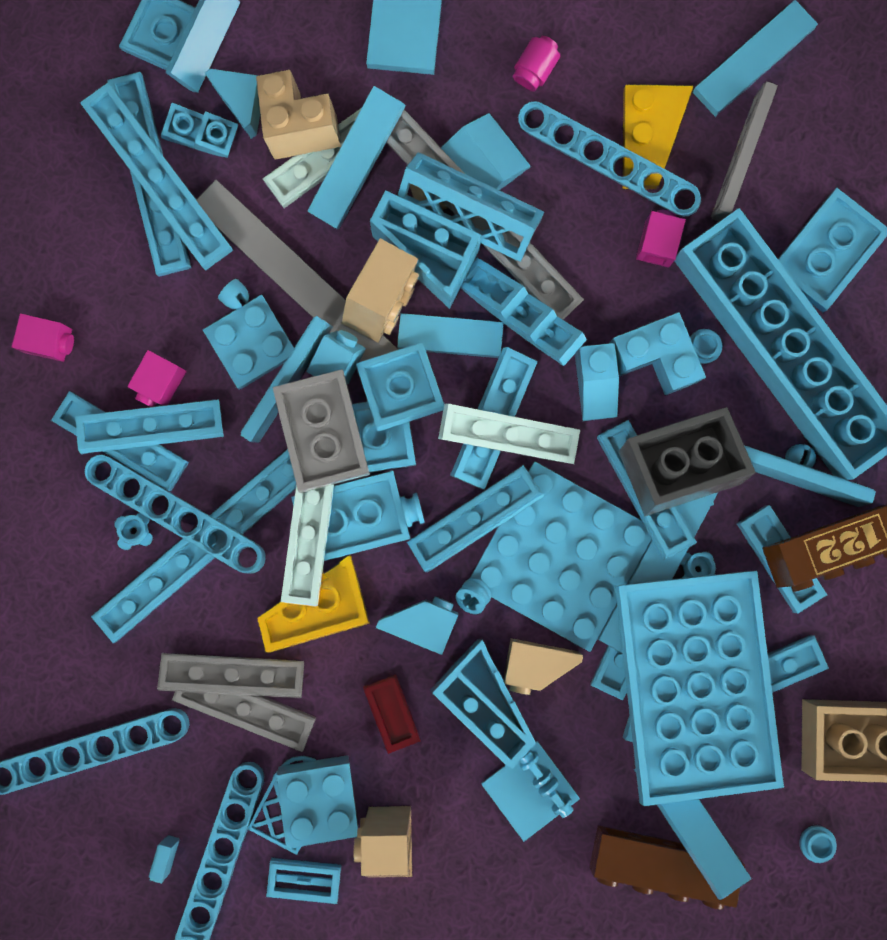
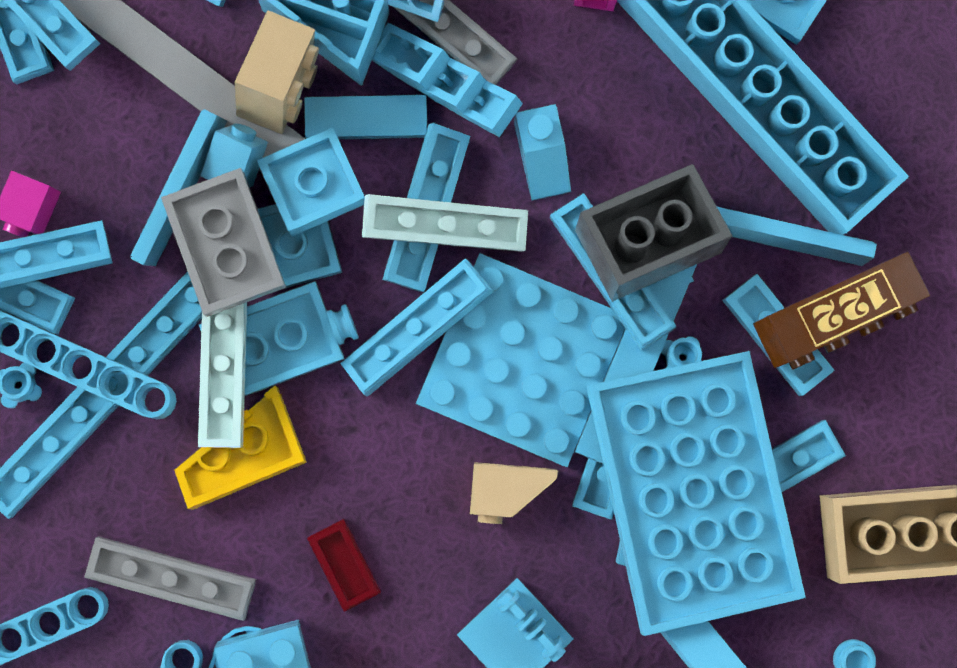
camera: 15 degrees left, 0 degrees up
(231, 675) = (150, 540): light grey tile -> none
(233, 293) = (105, 95): medium azure hinge -> none
(249, 342) = (131, 149): medium azure plate -> none
(422, 623) = (368, 455): medium azure slope -> none
(473, 596) = (421, 408): medium azure bush -> none
(484, 705) = (449, 541): medium azure wedge -> none
(665, 347) = (613, 101): medium azure brick -> none
(707, 345) = (663, 98): medium azure plate -> none
(796, 453) = (782, 211): medium azure hinge -> none

